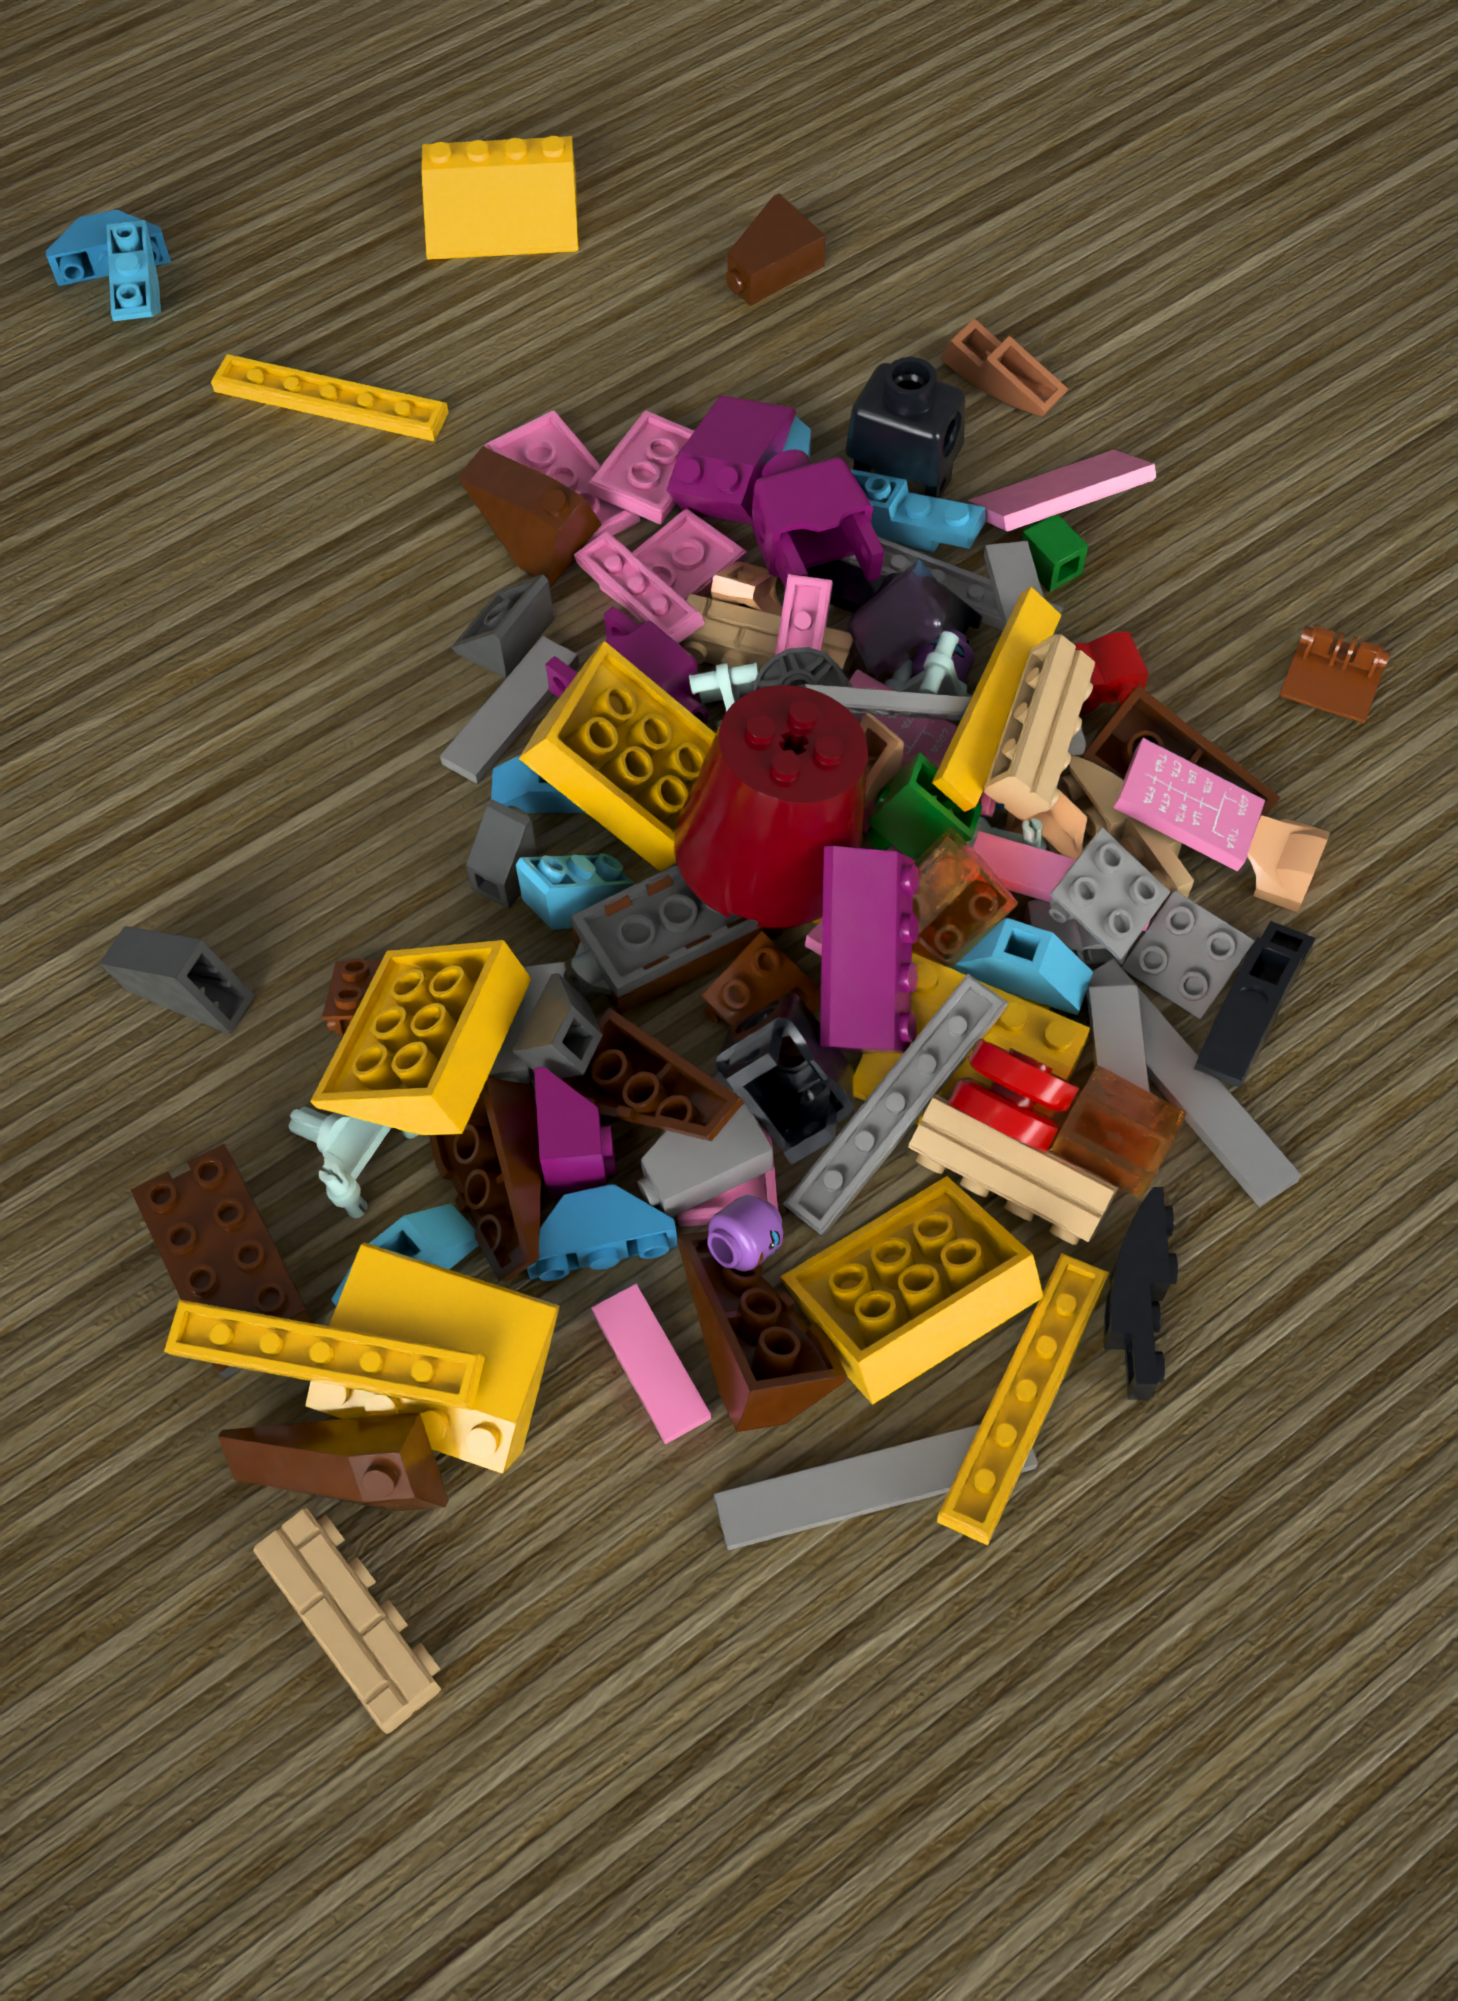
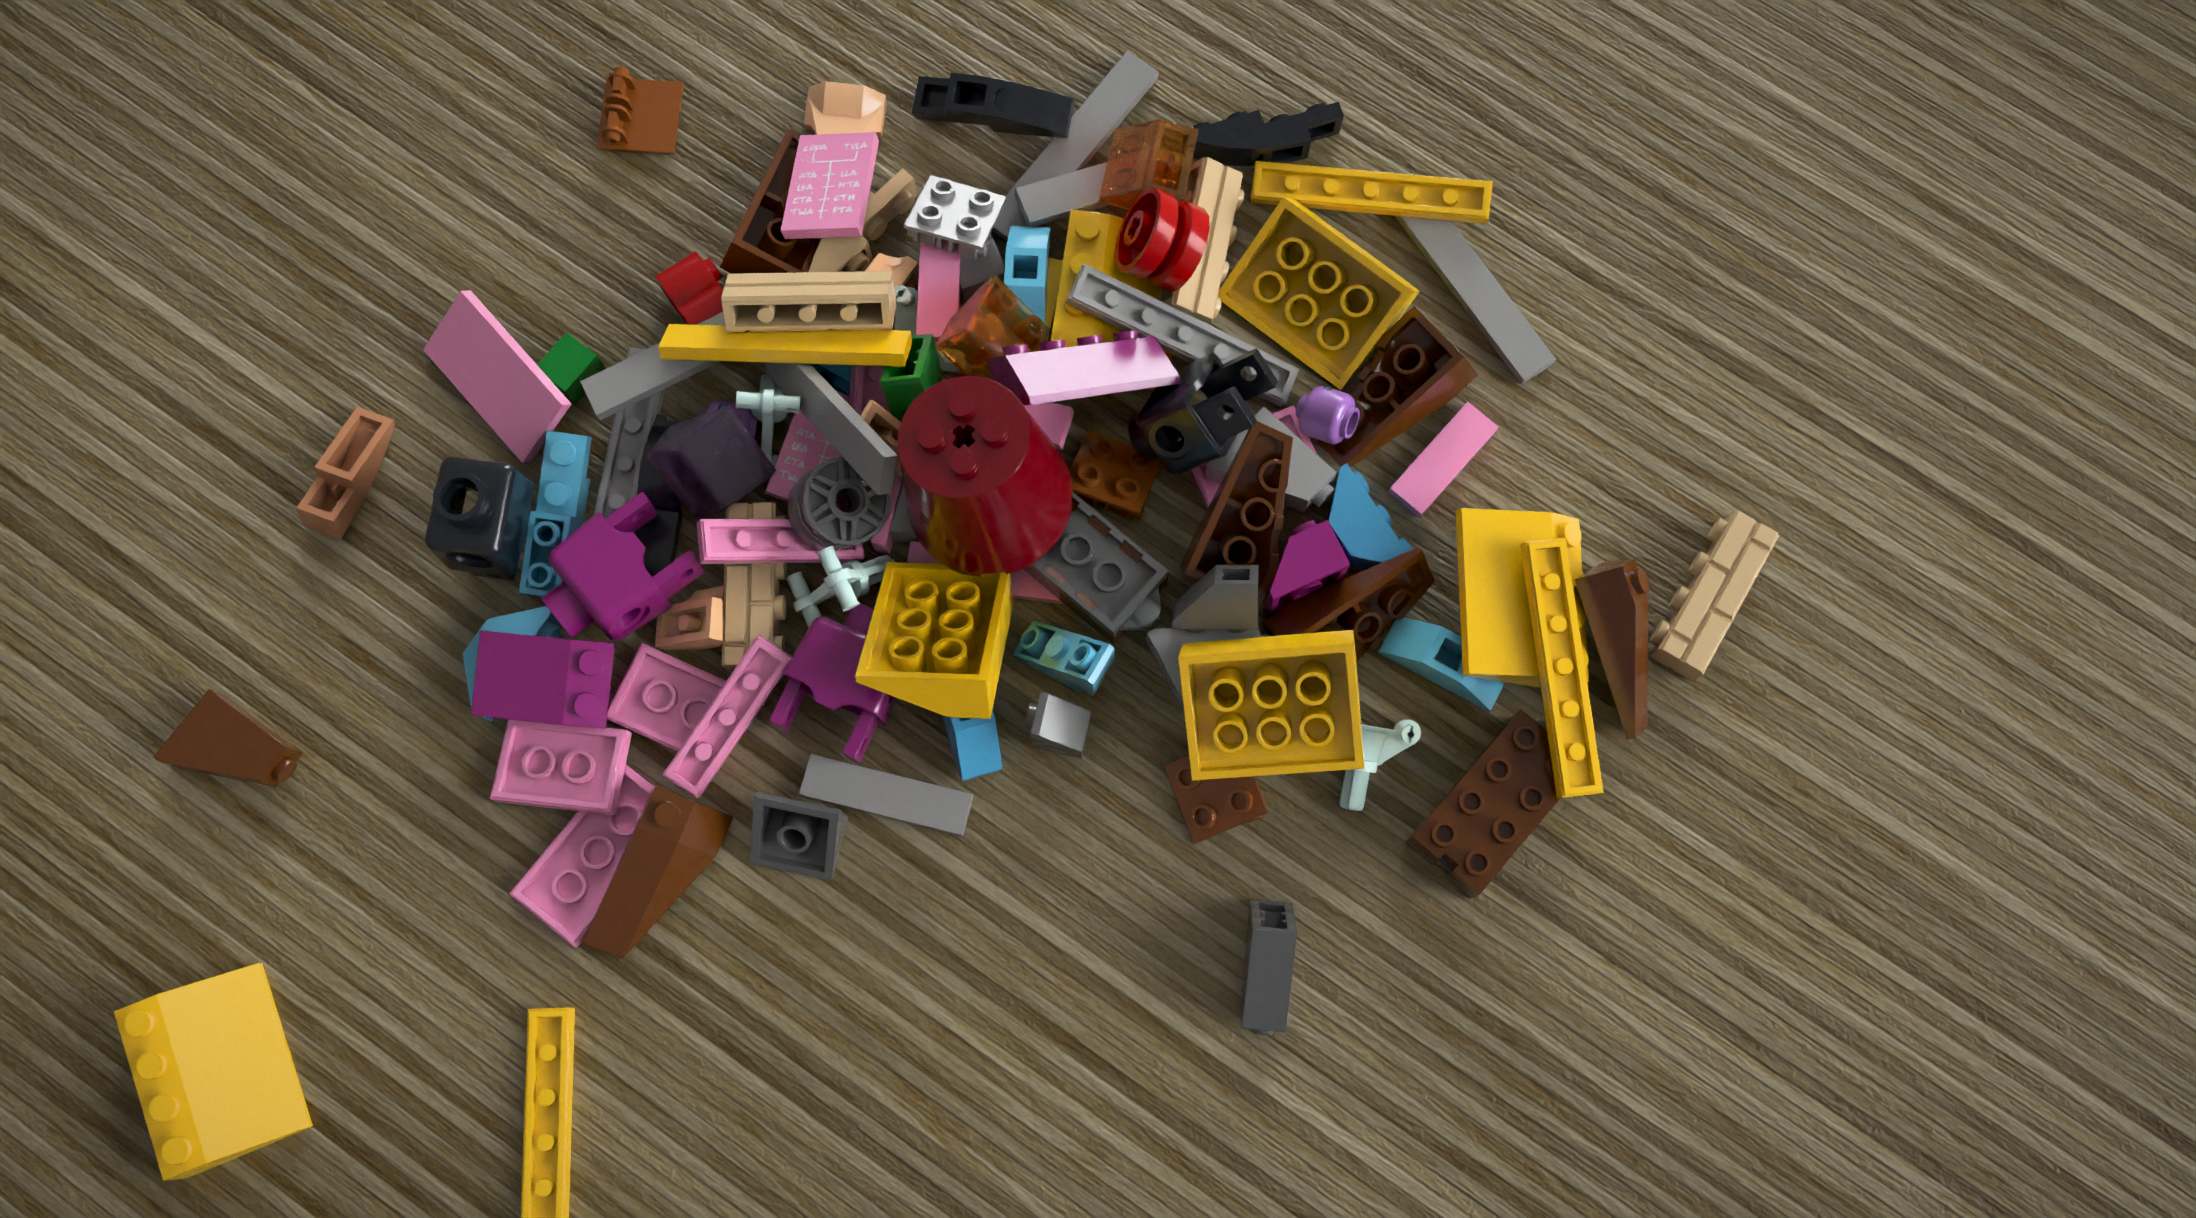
camera: 110 degrees left, 15 degrees up
(1188, 954) = (964, 156): light grey hinge -> none

